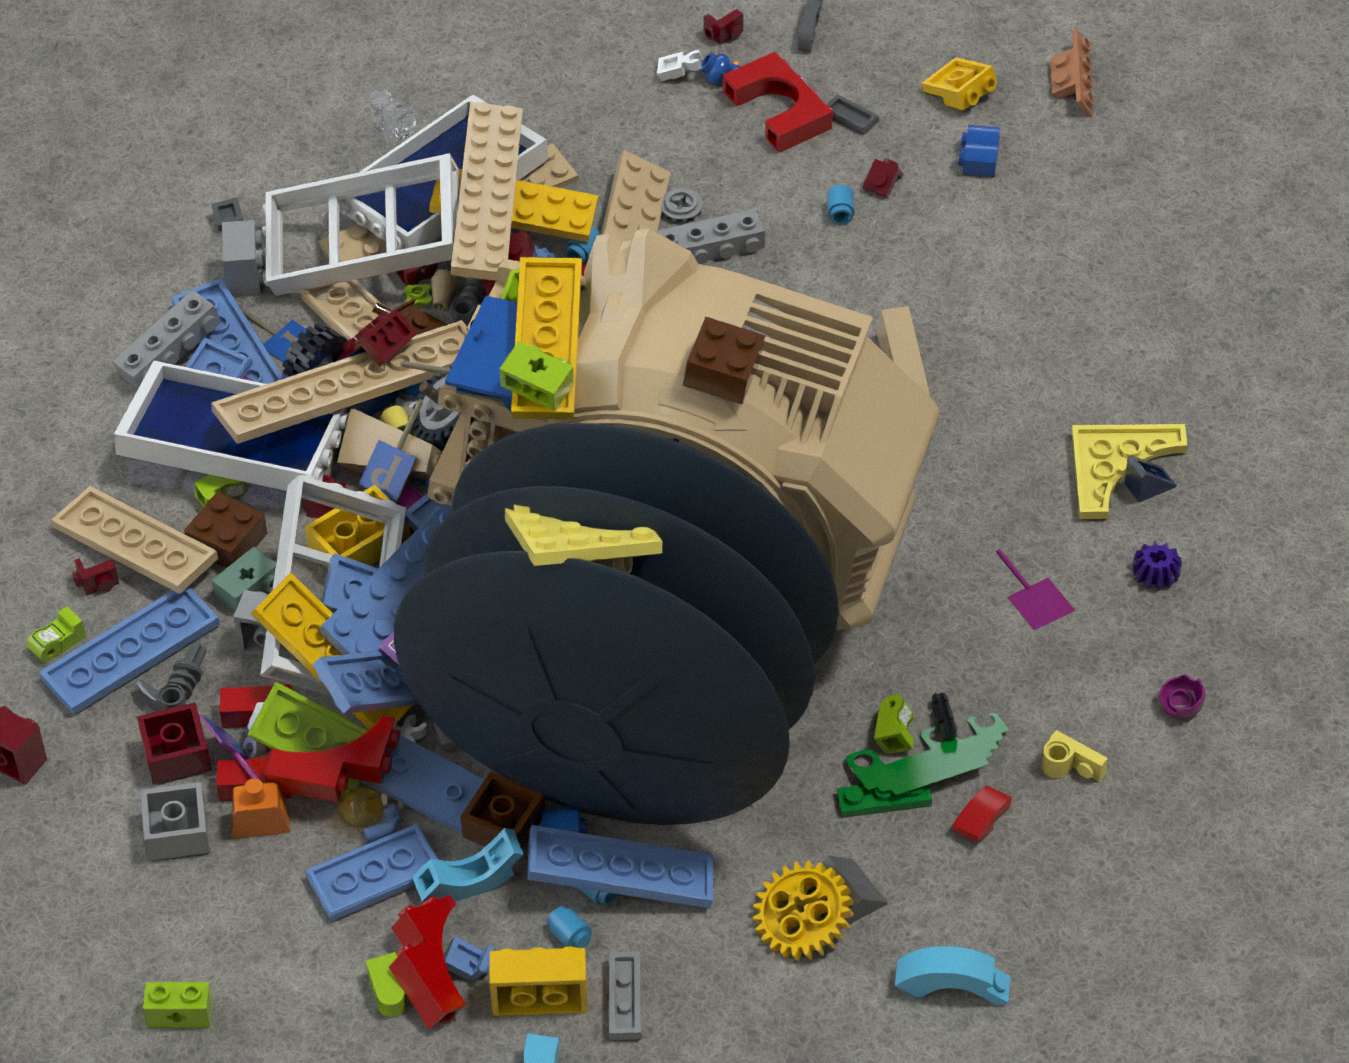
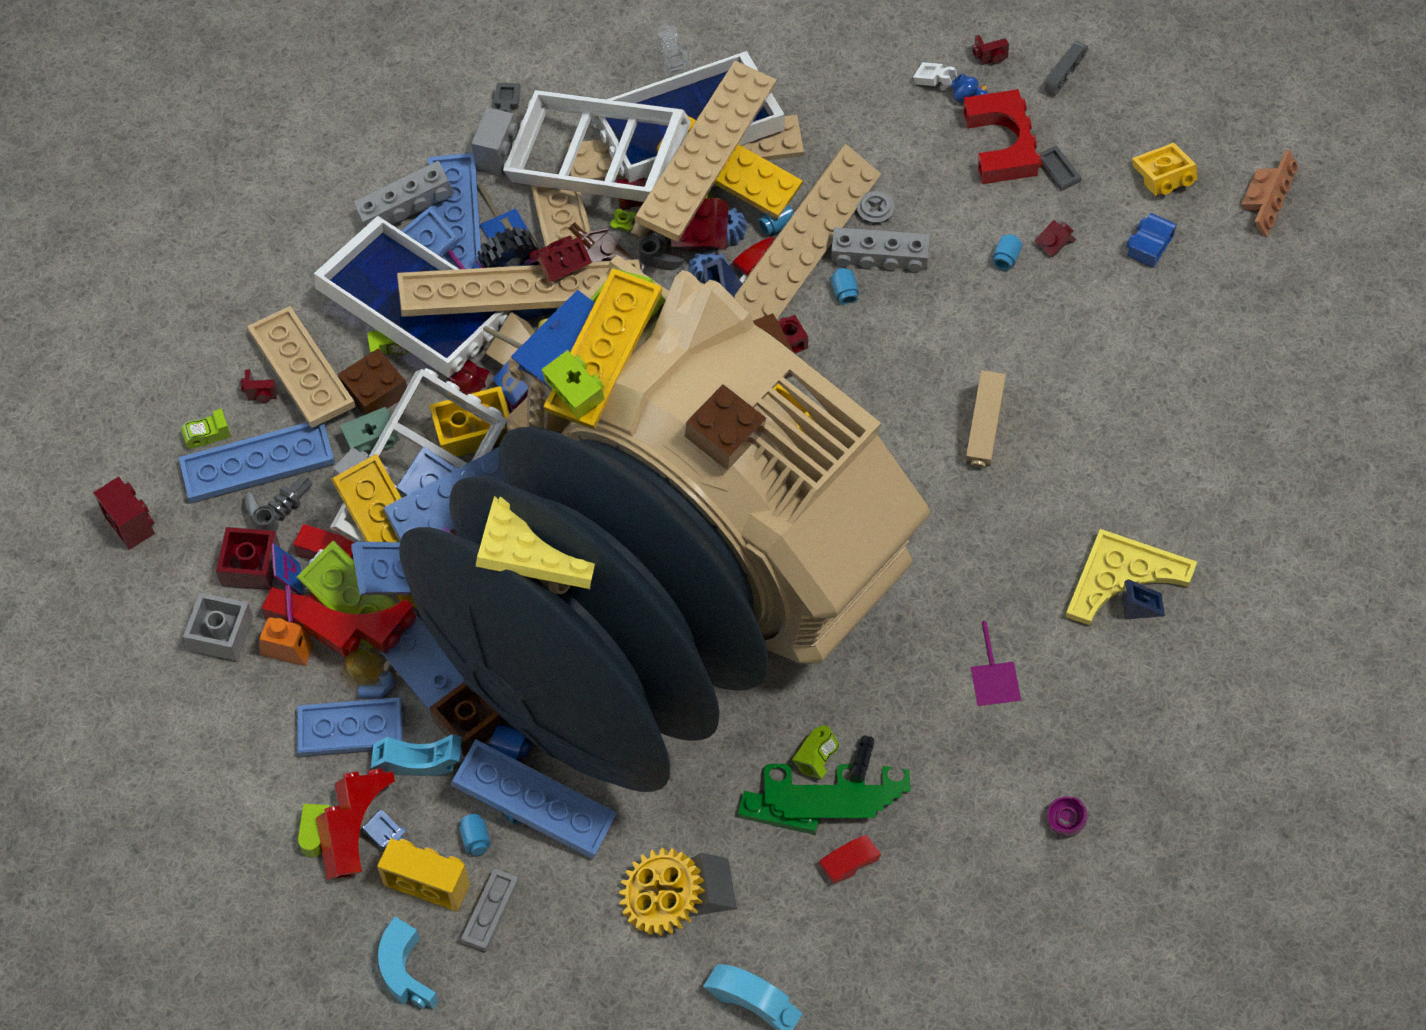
camera: 25 degrees right, 10 degrees up
(178, 1005) = (150, 785): lime brick -> none
(1065, 753) = (950, 835): light yellow plate -> none
(1157, 565) = (1107, 693): dark purple gear -> none

